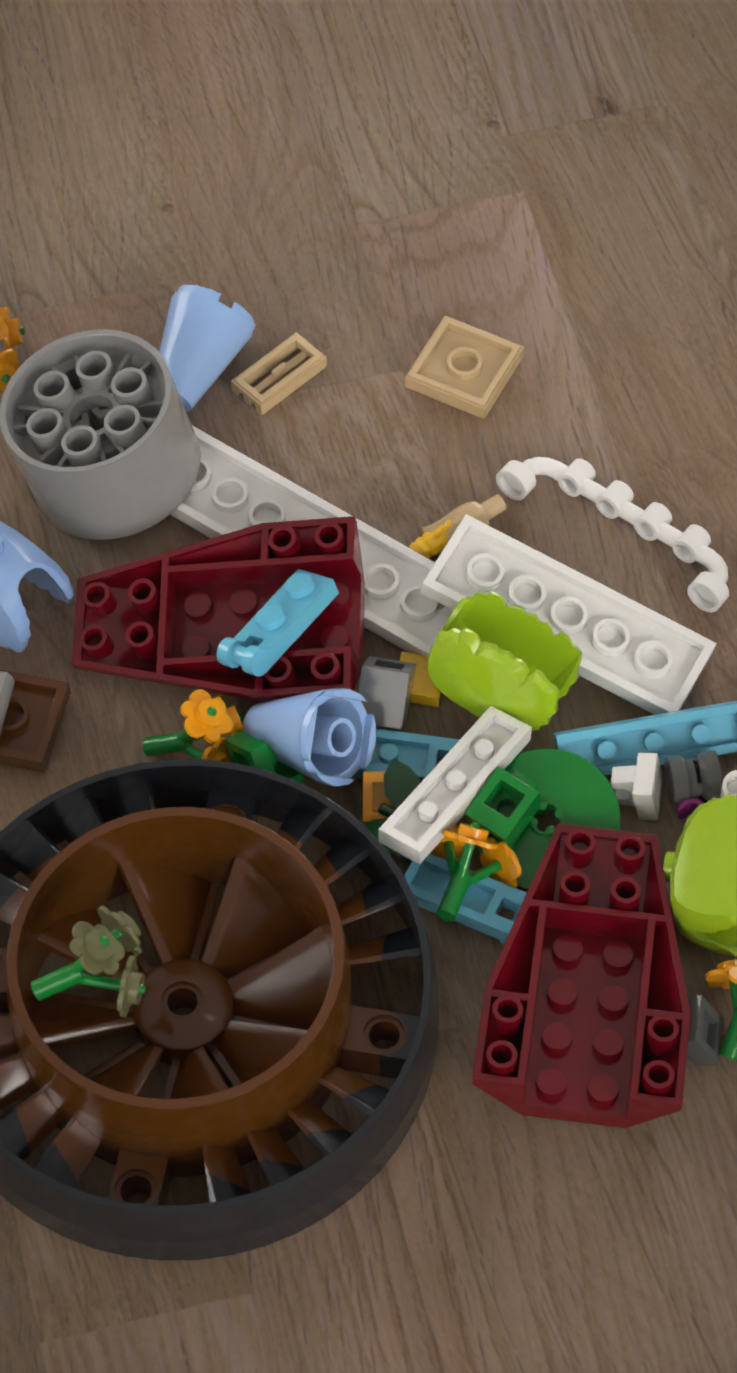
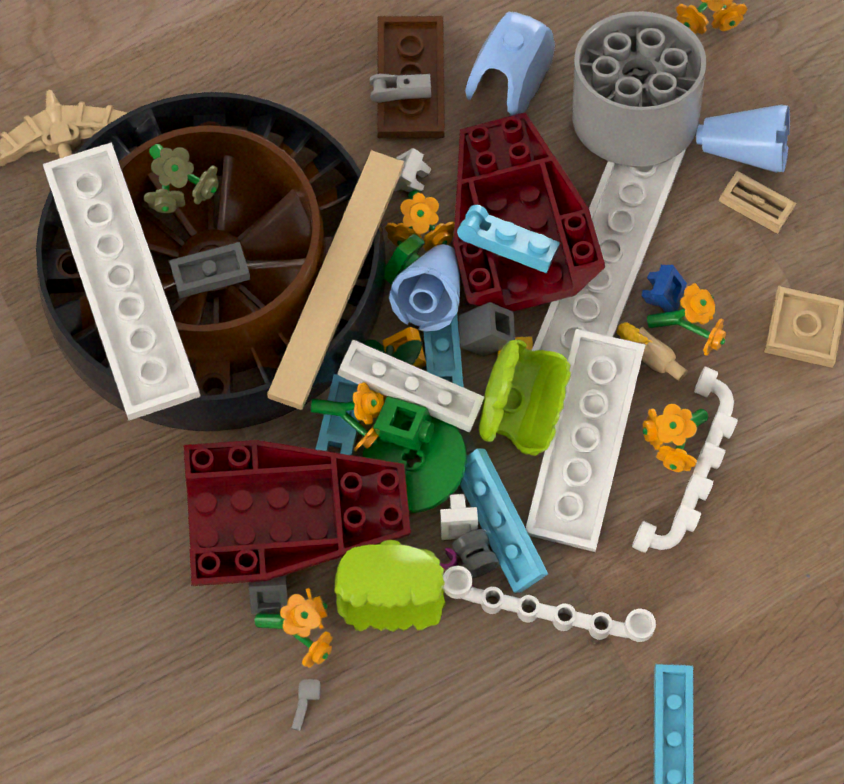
camera: 75 degrees right, 10 degrees up
(112, 741) = (412, 165): none -> white tile
(234, 1068) = (121, 281): none -> white plate
(252, 954) = (209, 270): none -> dark grey plate
(316, 833) = (335, 281): none -> tan tile
(371, 486) = (667, 288): none -> blue tile
(418, 451) = (697, 307): none -> light orange plant
(586, 504) = (673, 426): none -> light orange plant

